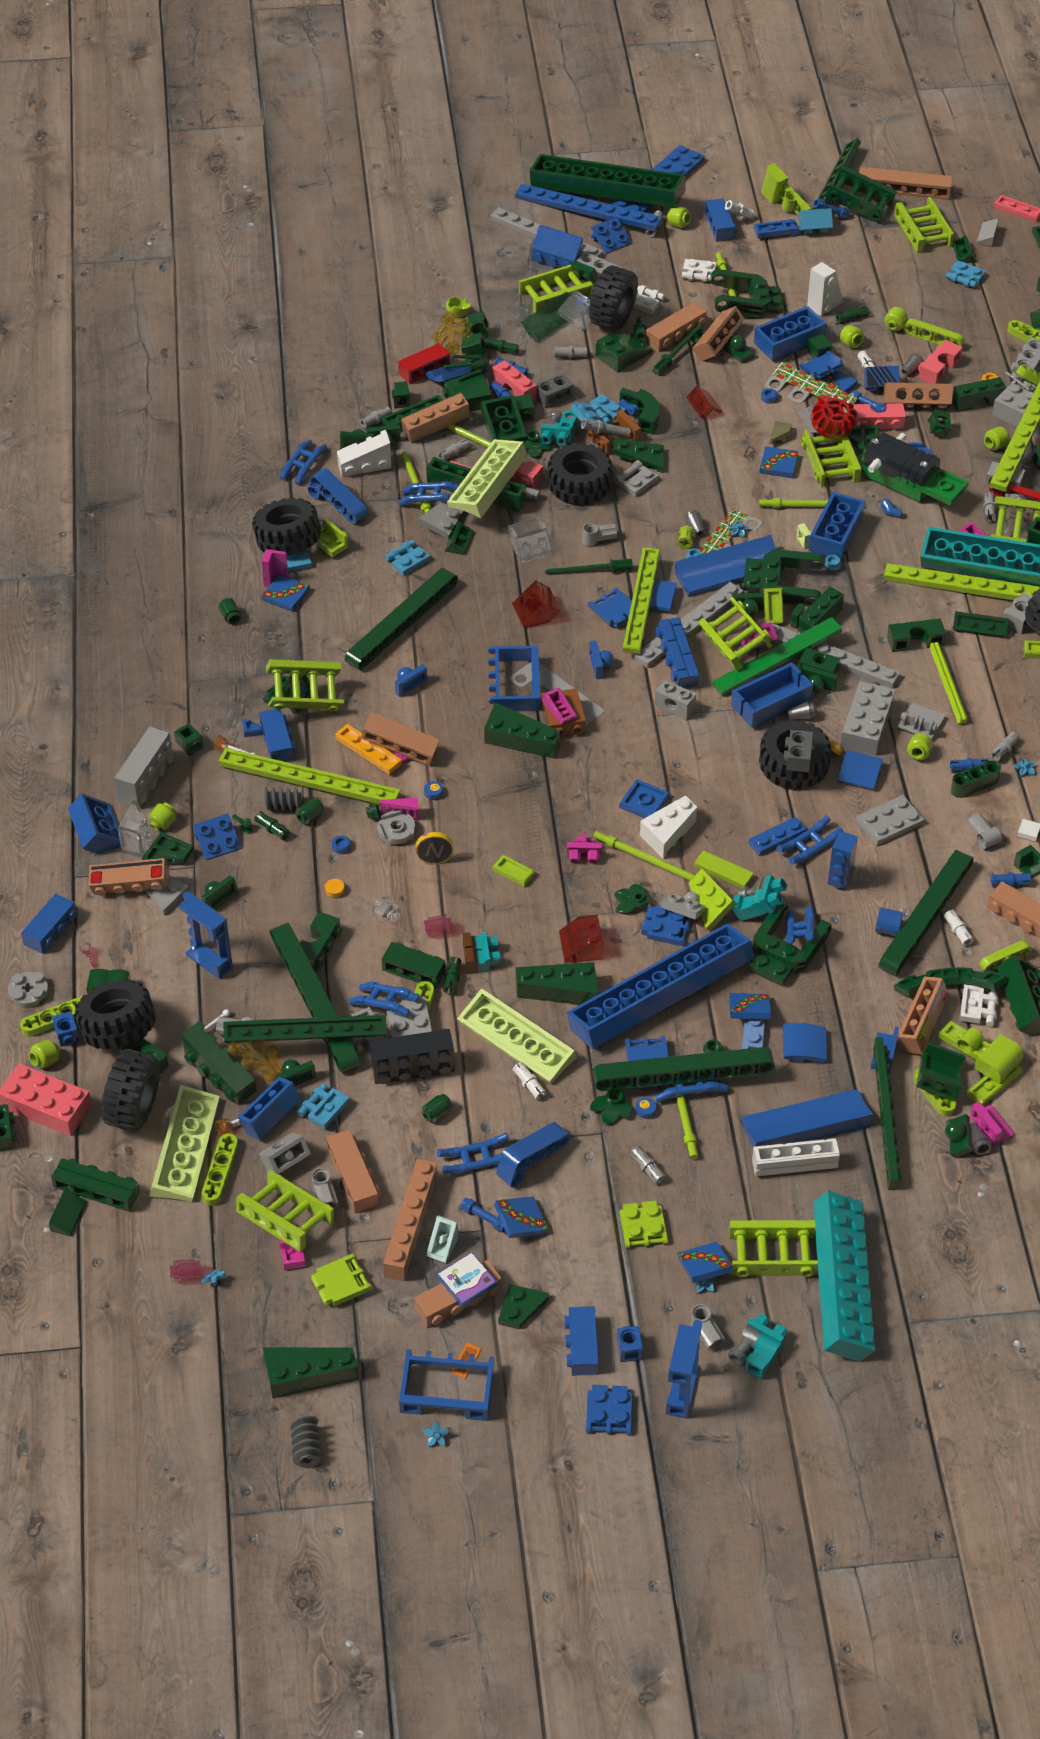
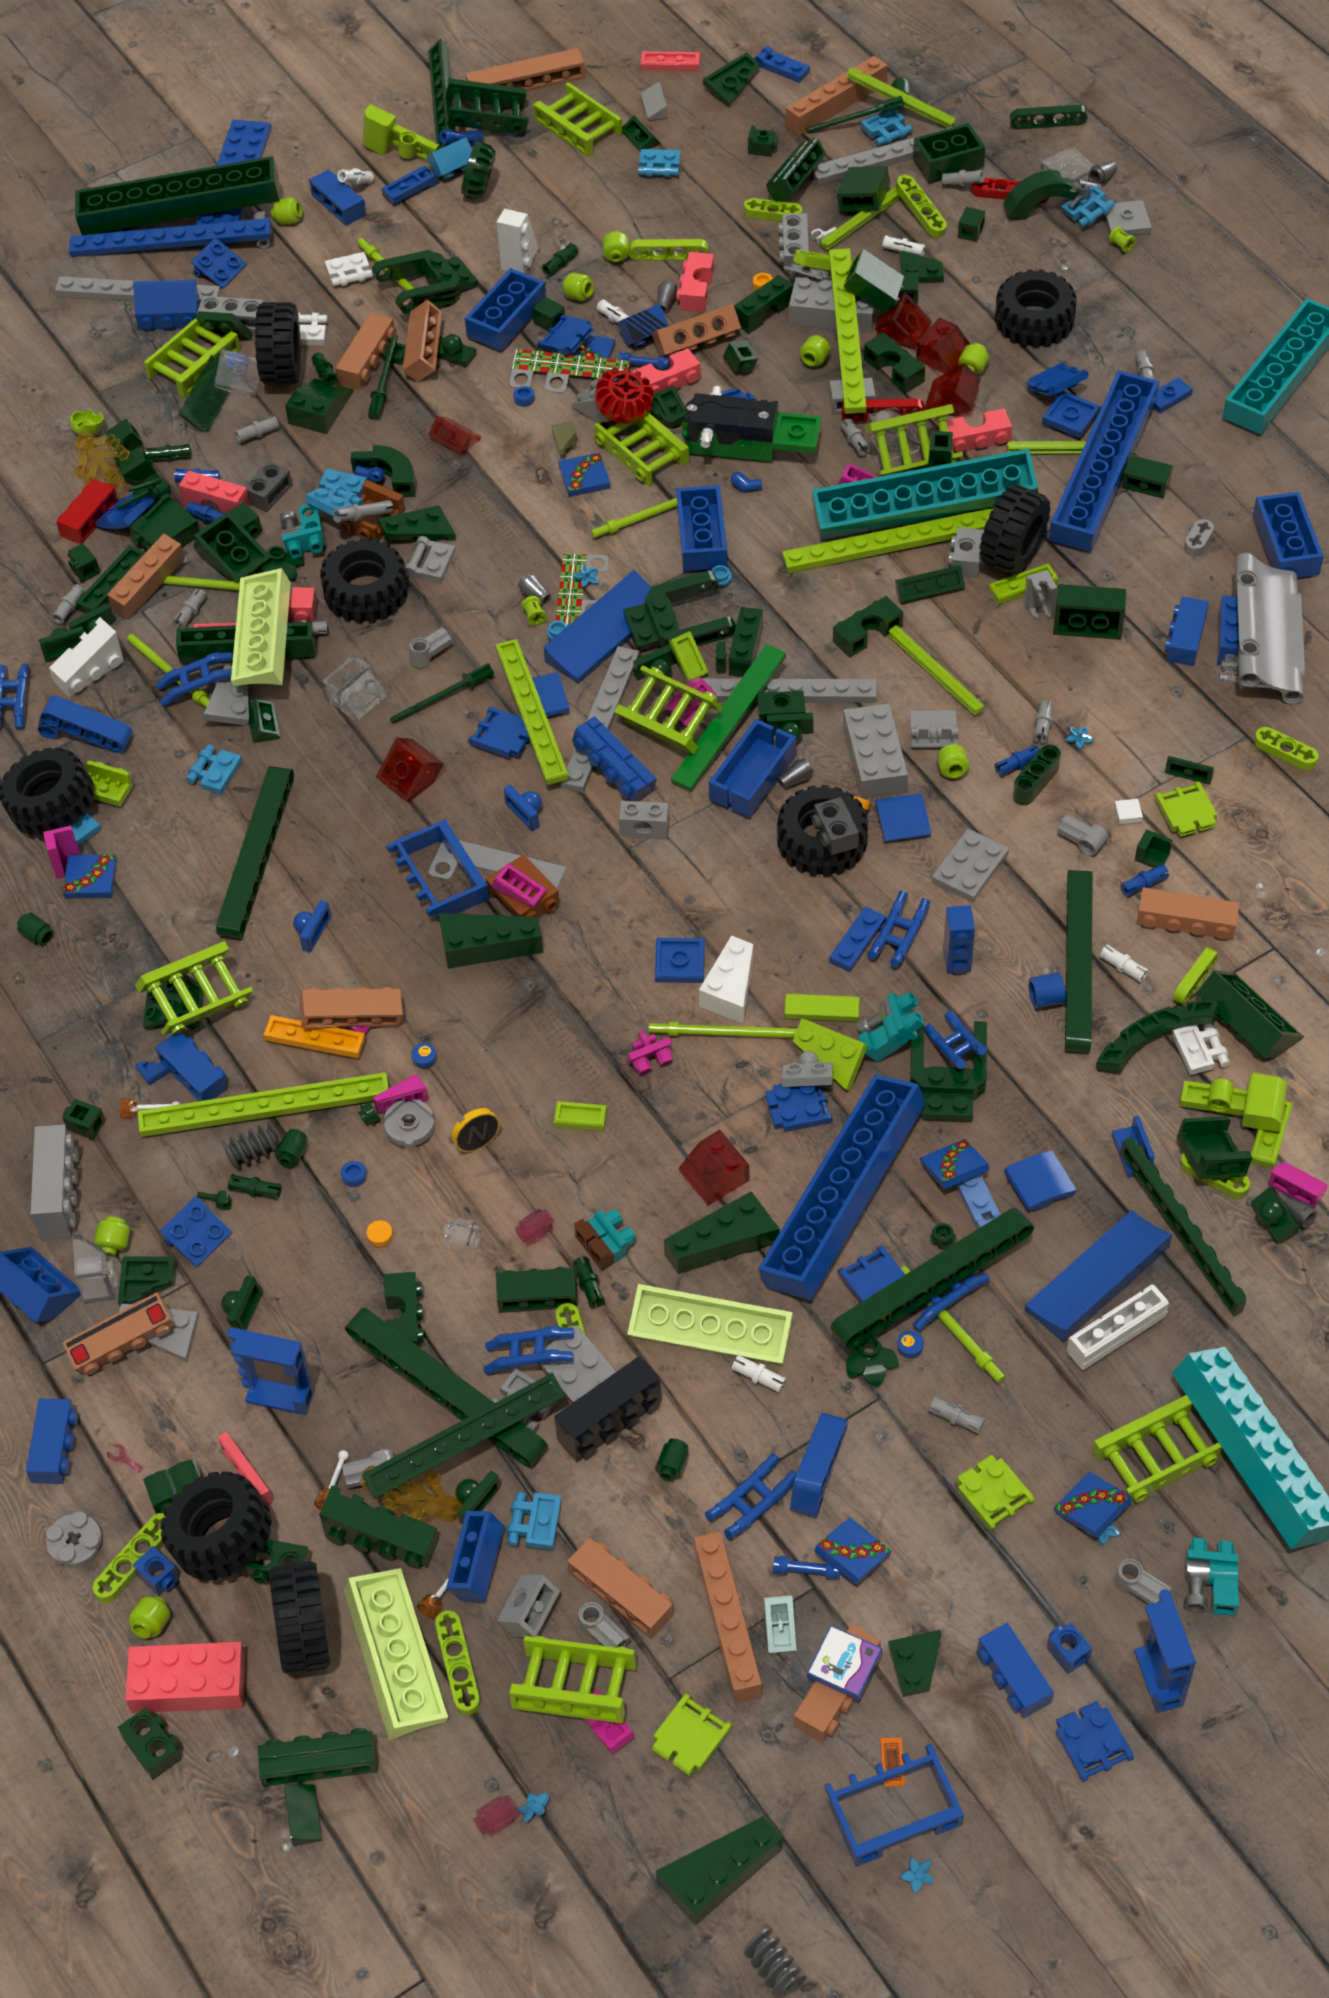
camera: 25 degrees left, 5 degrees up
(158, 995) = (243, 1466): none -> coral tile
(631, 899) = (737, 1090): dark green plate -> none
(803, 535) = (669, 555): yellowish green plate -> none
(827, 233) = (478, 170): none -> dark green gear
(923, 1015) = (1152, 1088): nougat brick -> none

